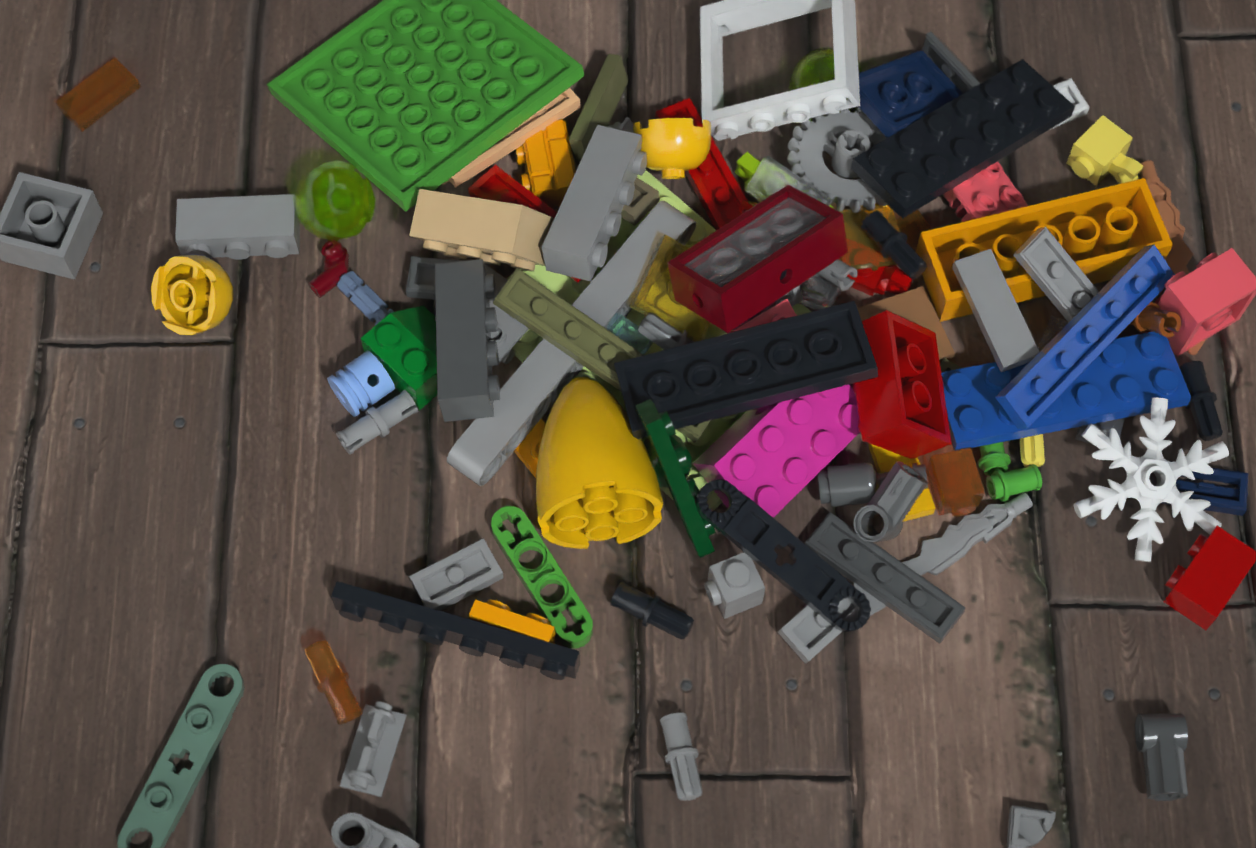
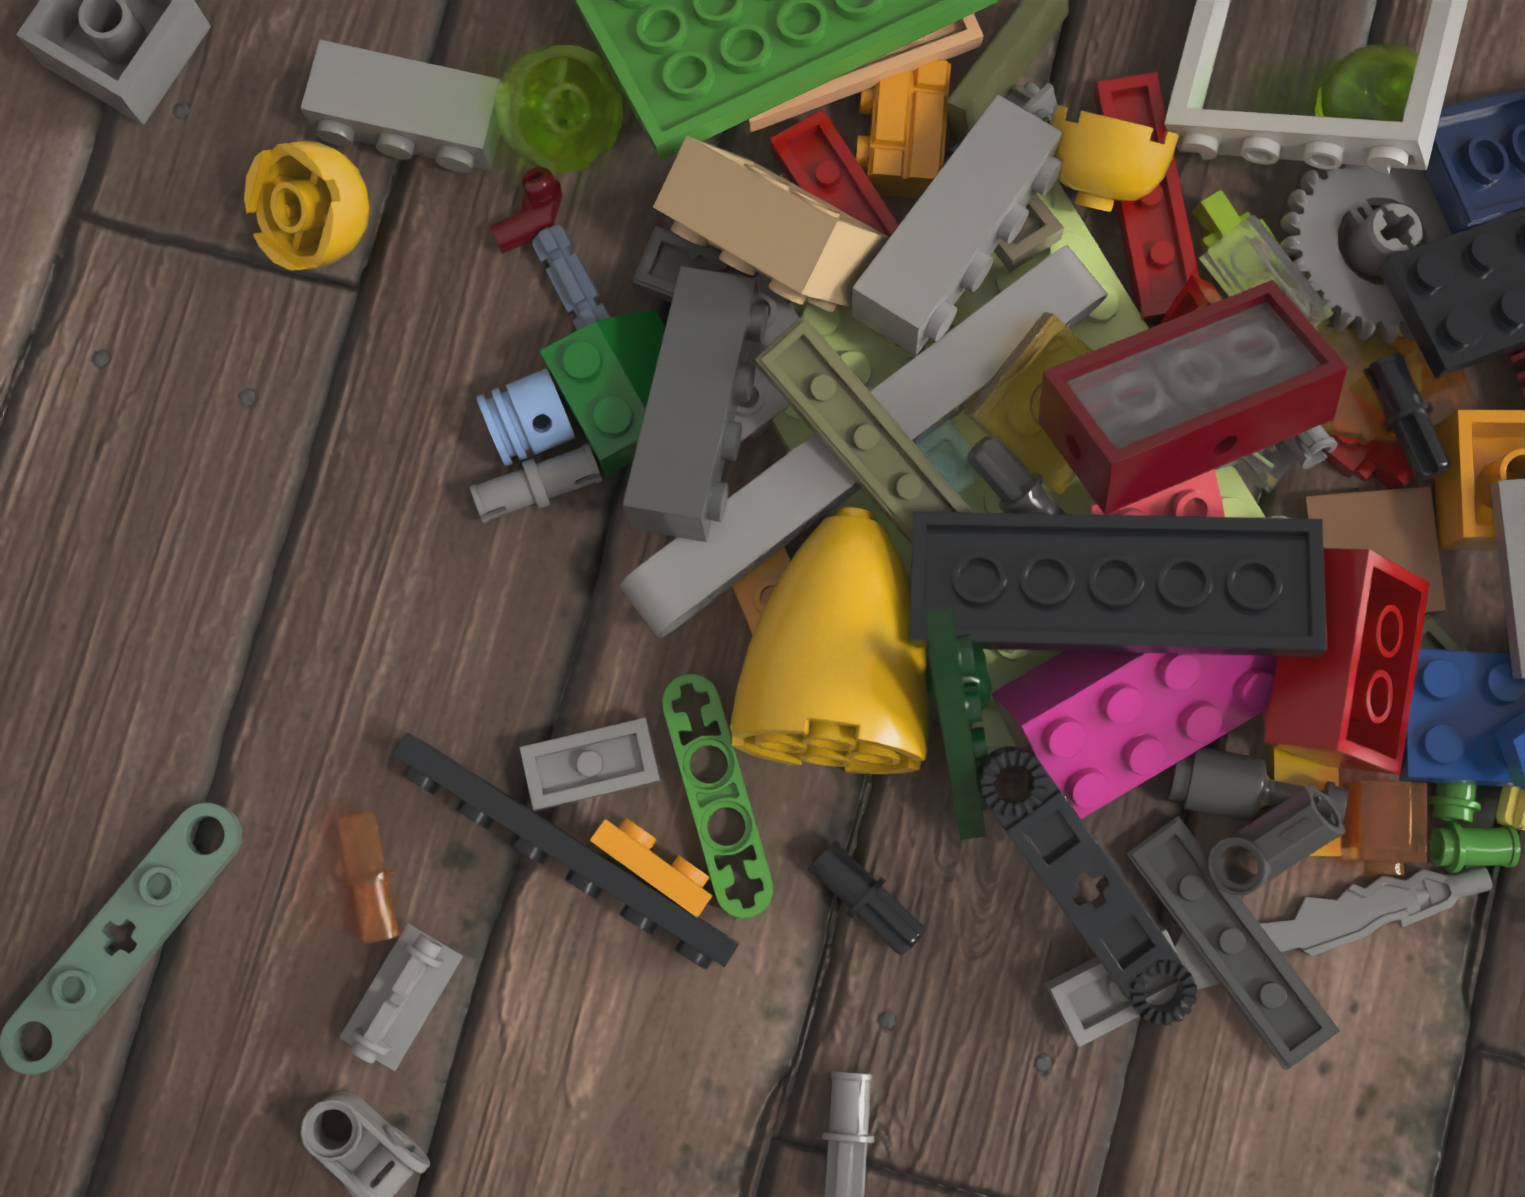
camera: 15 degrees right, 15 degrees up
(734, 585) = (1000, 899): light grey brick -> none

